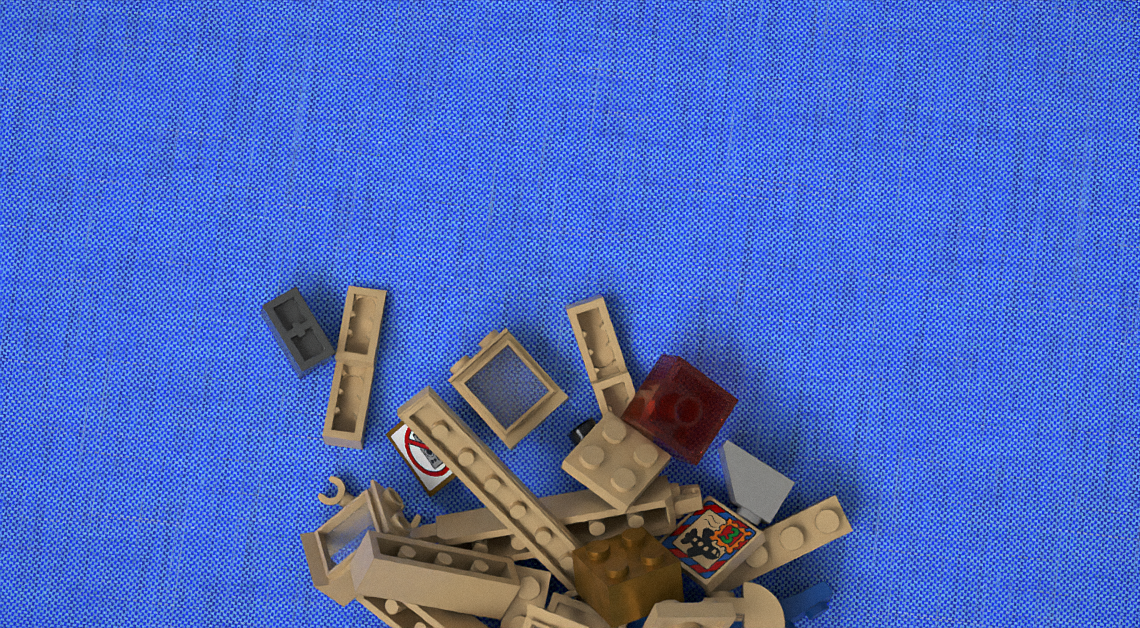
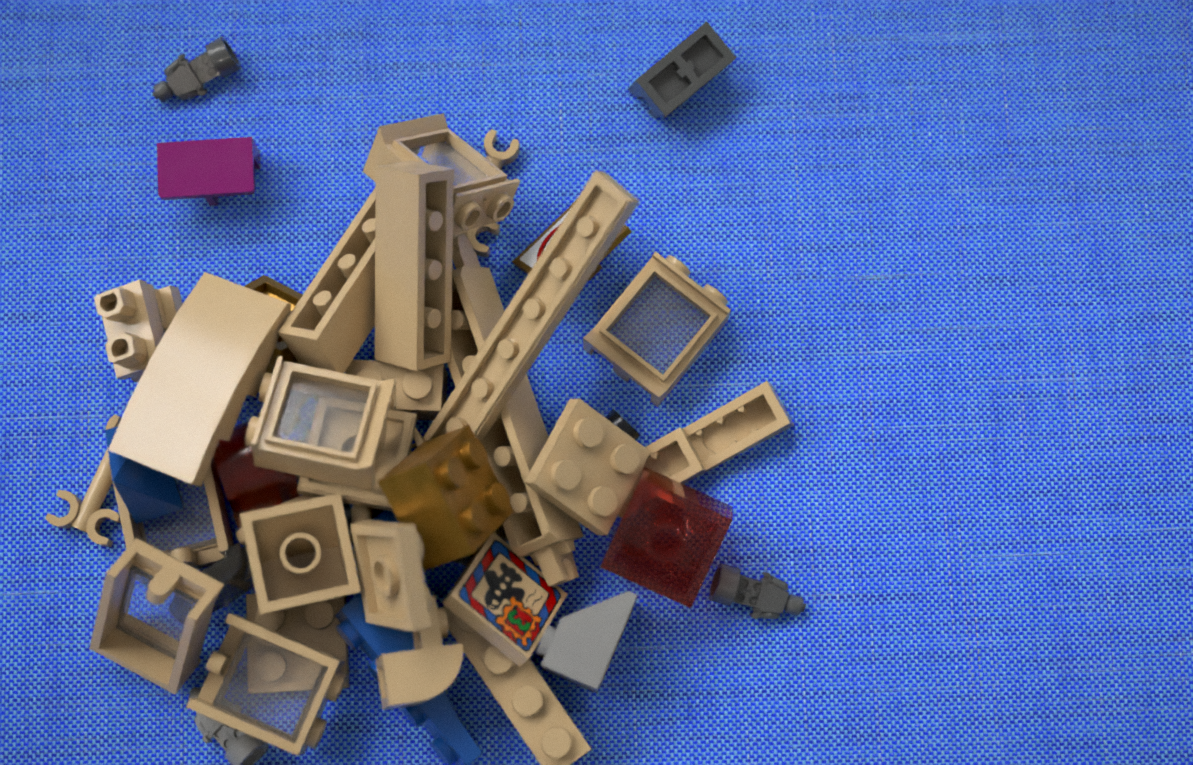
camera: 80 degrees right, 5 degrees down
(354, 368) = (652, 149): tan slope -> none
(734, 340) = (766, 596): none -> dark grey piece

